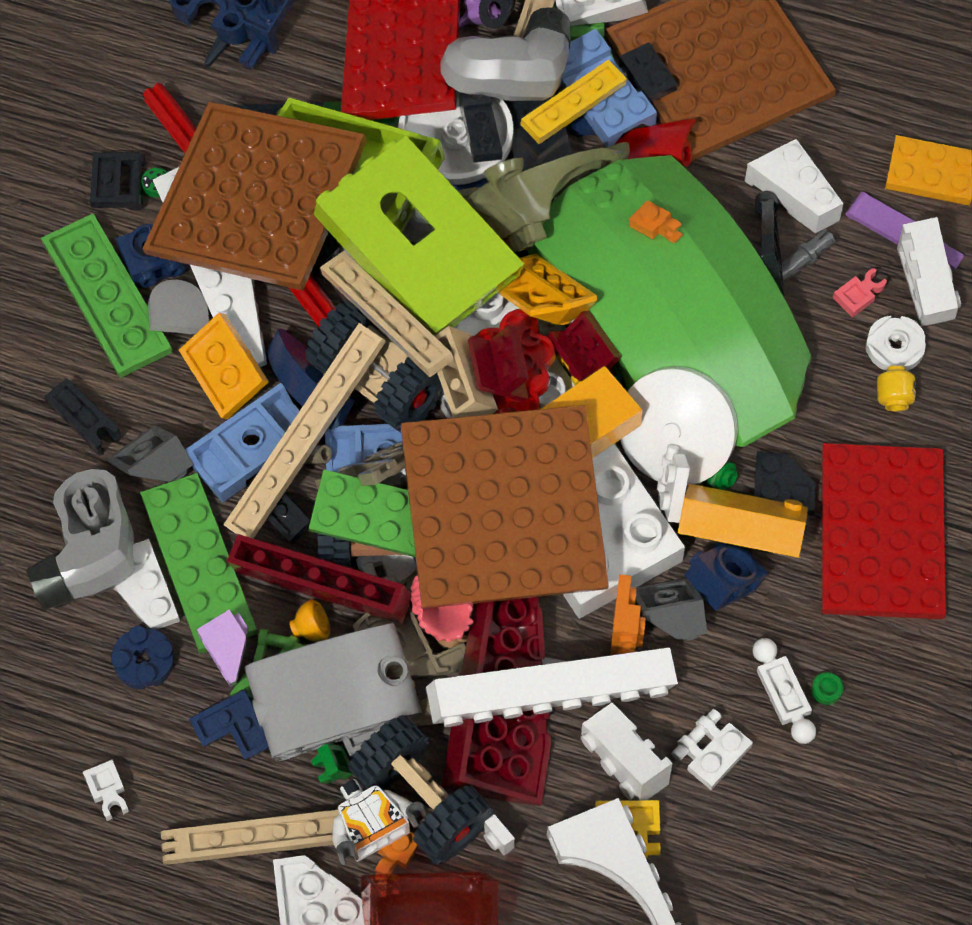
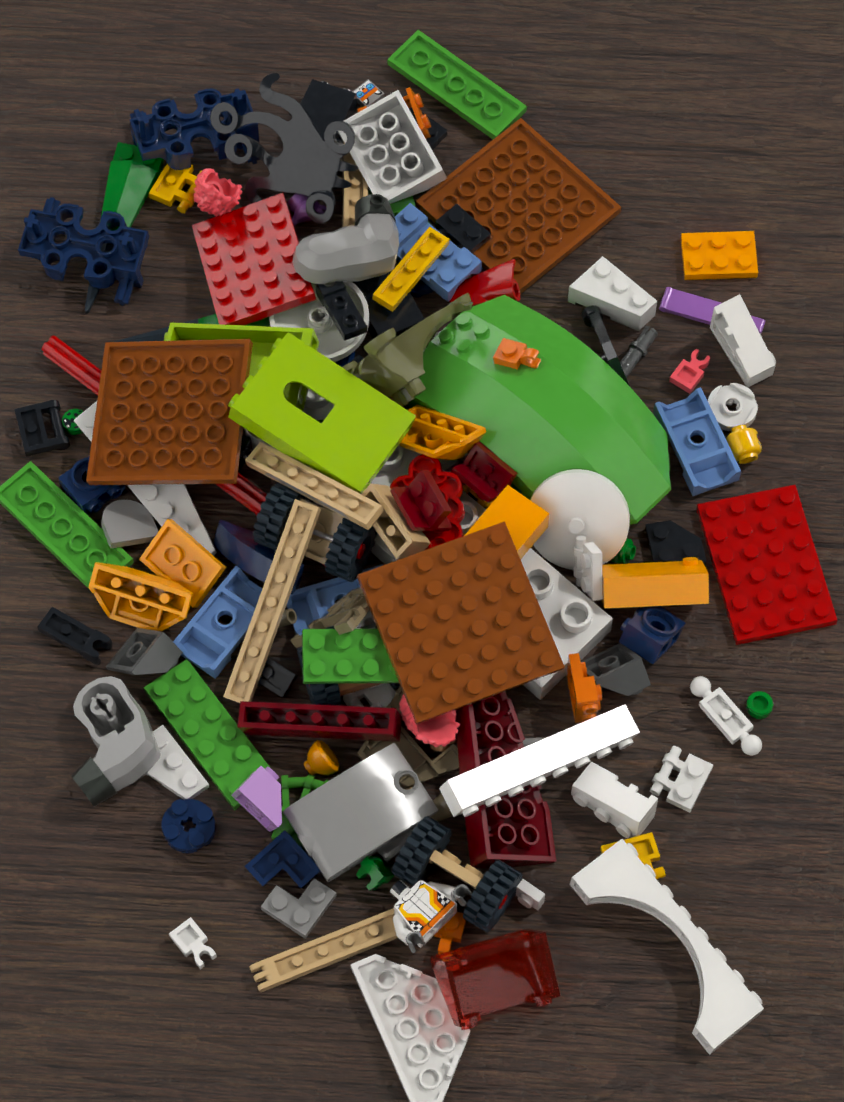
camera: 15 degrees left, 0 degrees up
(164, 390) = (139, 597): none -> light orange wedge
(235, 788) = (301, 913): none -> light grey plate
(844, 400) = (706, 463): none -> medium blue piece

